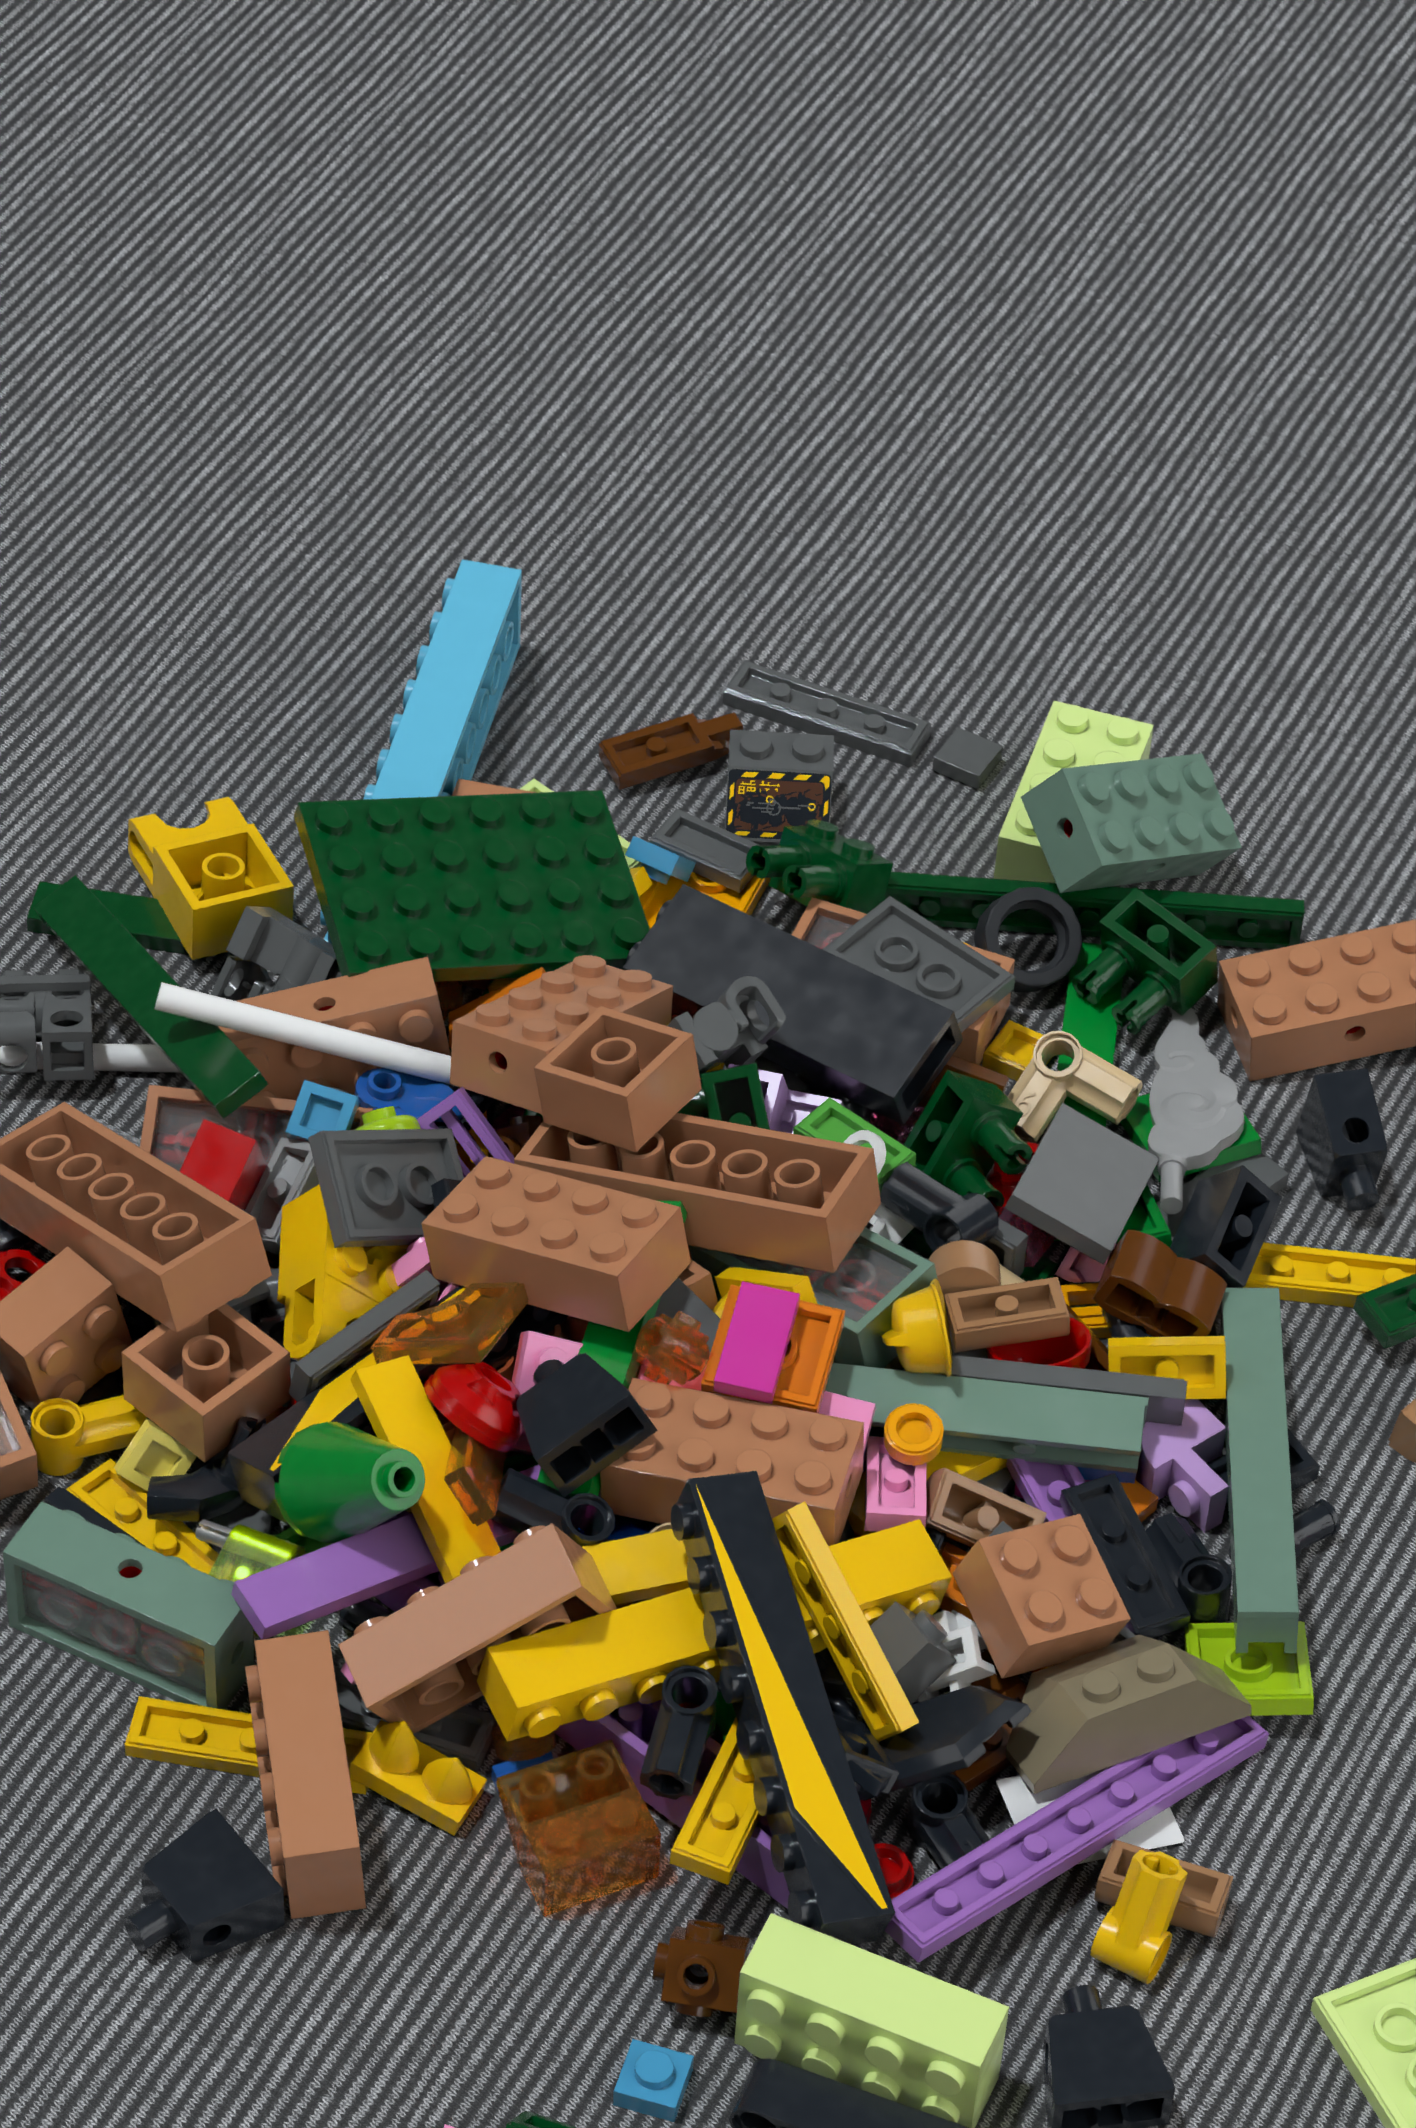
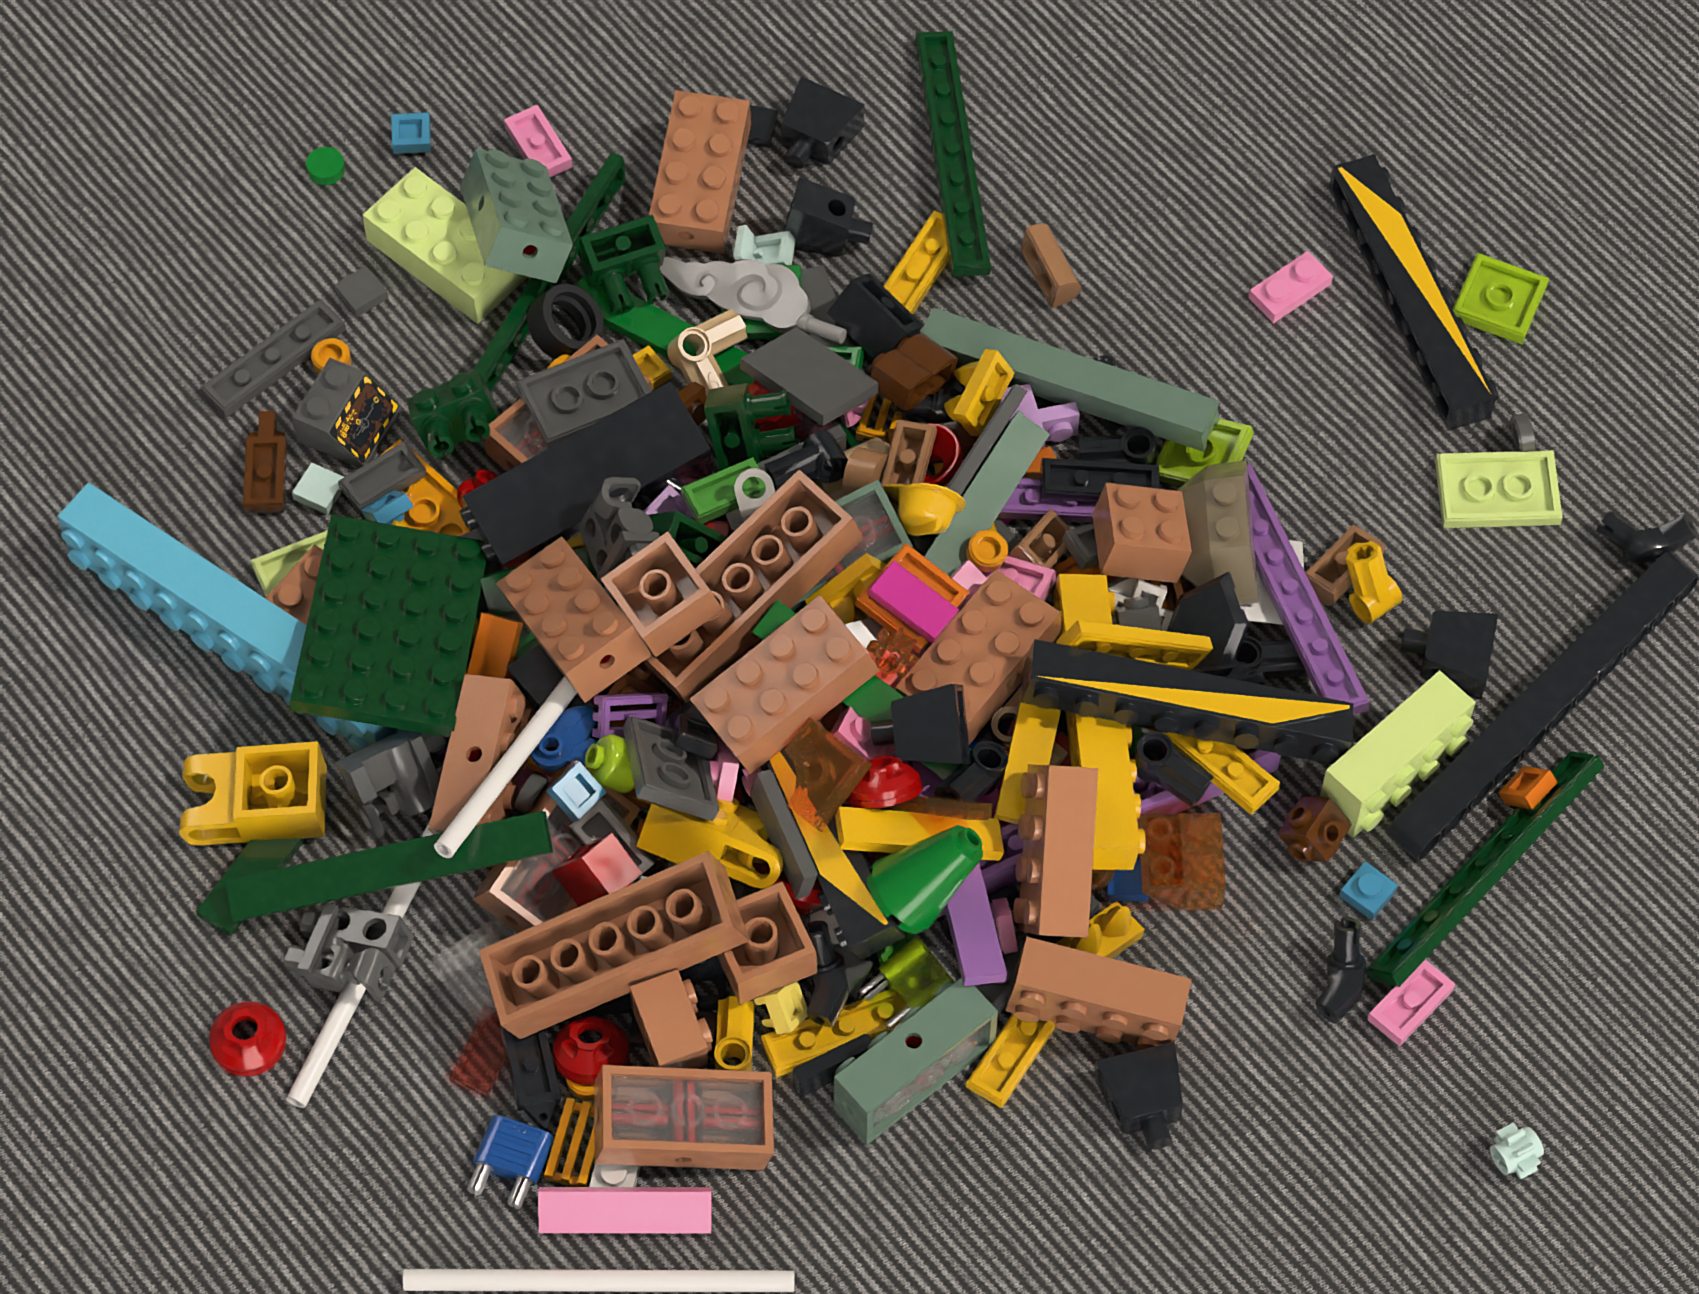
camera: 65 degrees left, 15 degrees up
(499, 2082) = (1345, 972): none -> black arm
(662, 801) = (318, 488): none -> light aqua tile
(858, 762) = (327, 349): none -> light orange tile
(1124, 671) = (325, 166): none -> green tile
(1219, 726) = (411, 133): none -> dark azure plate
(1265, 1100) = (767, 249): none -> light aqua bracket
(1284, 844) = (538, 140): none -> bright pink plate

